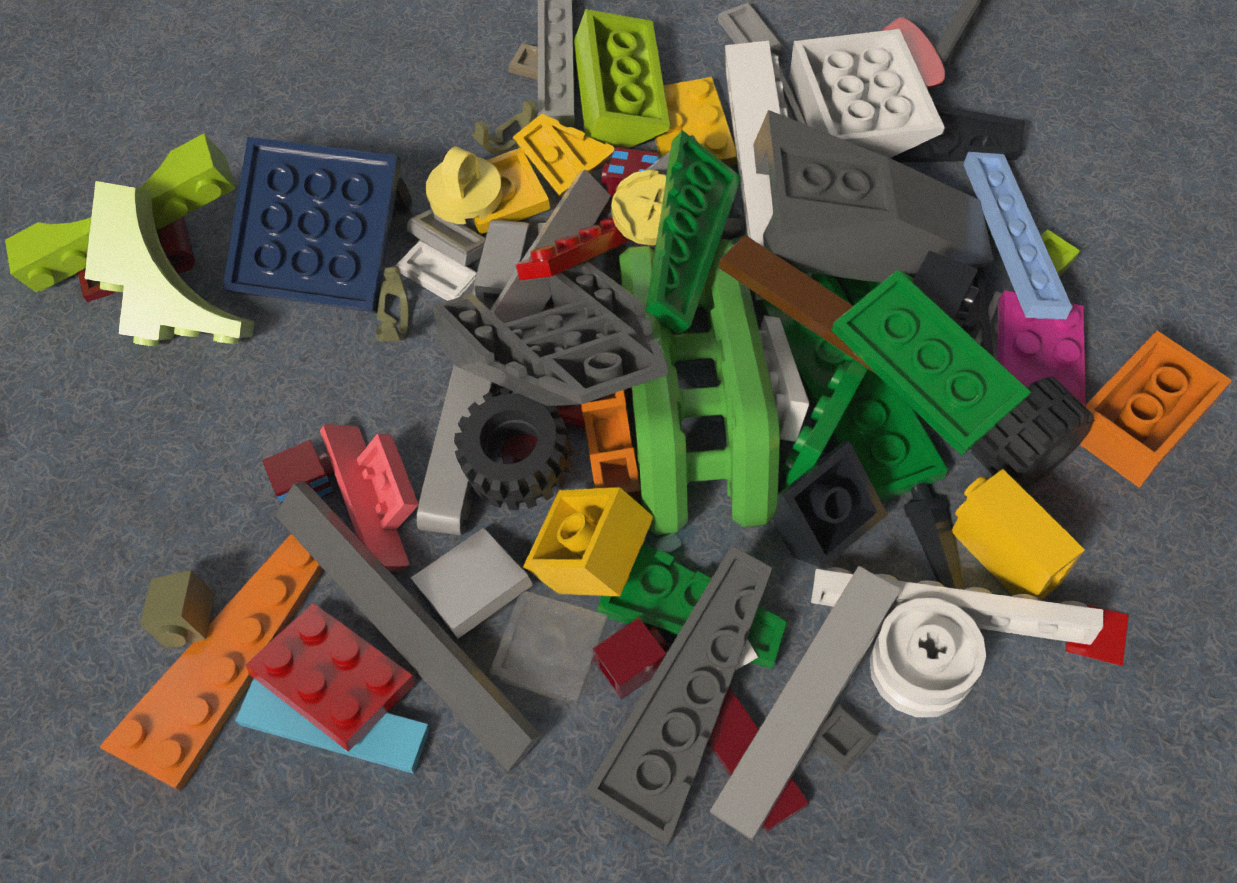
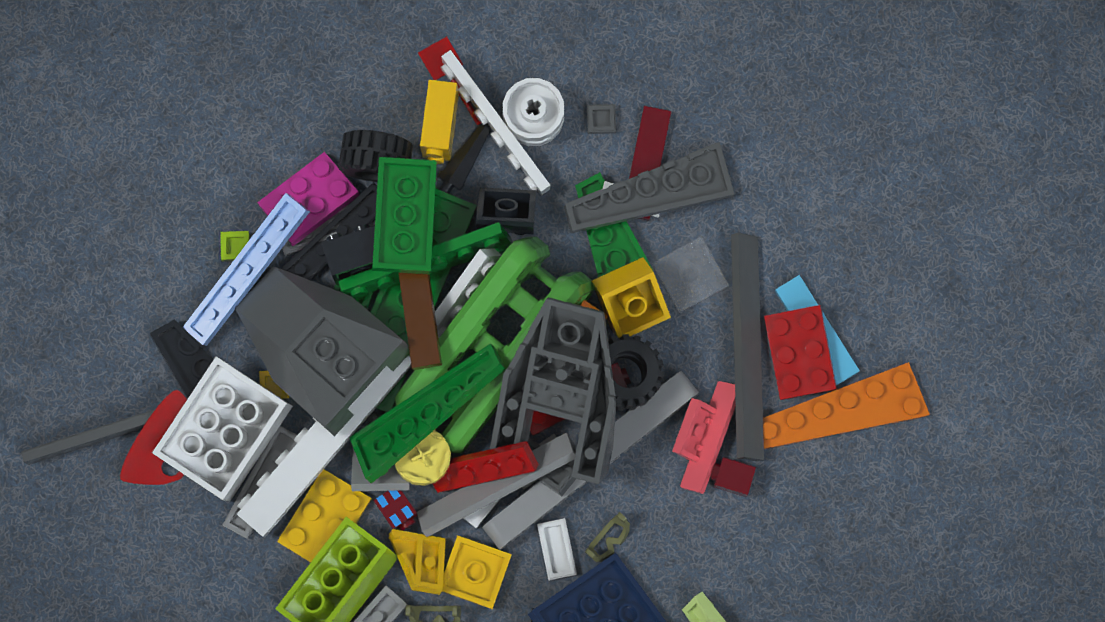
camera: 140 degrees left, 20 degrees up
(177, 609) = (847, 448): olive brick -> none
(447, 237) = (531, 566): light grey tile -> none
(464, 187) = (499, 583): light yellow tile -> none
(471, 582) = (698, 339): light grey tile -> none
(630, 657) = (658, 234): dark red brick -> none
(668, 543) = (592, 274): clear light blue hand -> none
(746, 26) = (215, 558): light grey tile -> none
(805, 703) = (604, 140): light grey tile -> none
(1151, 407) = (299, 121): orange brick -> none

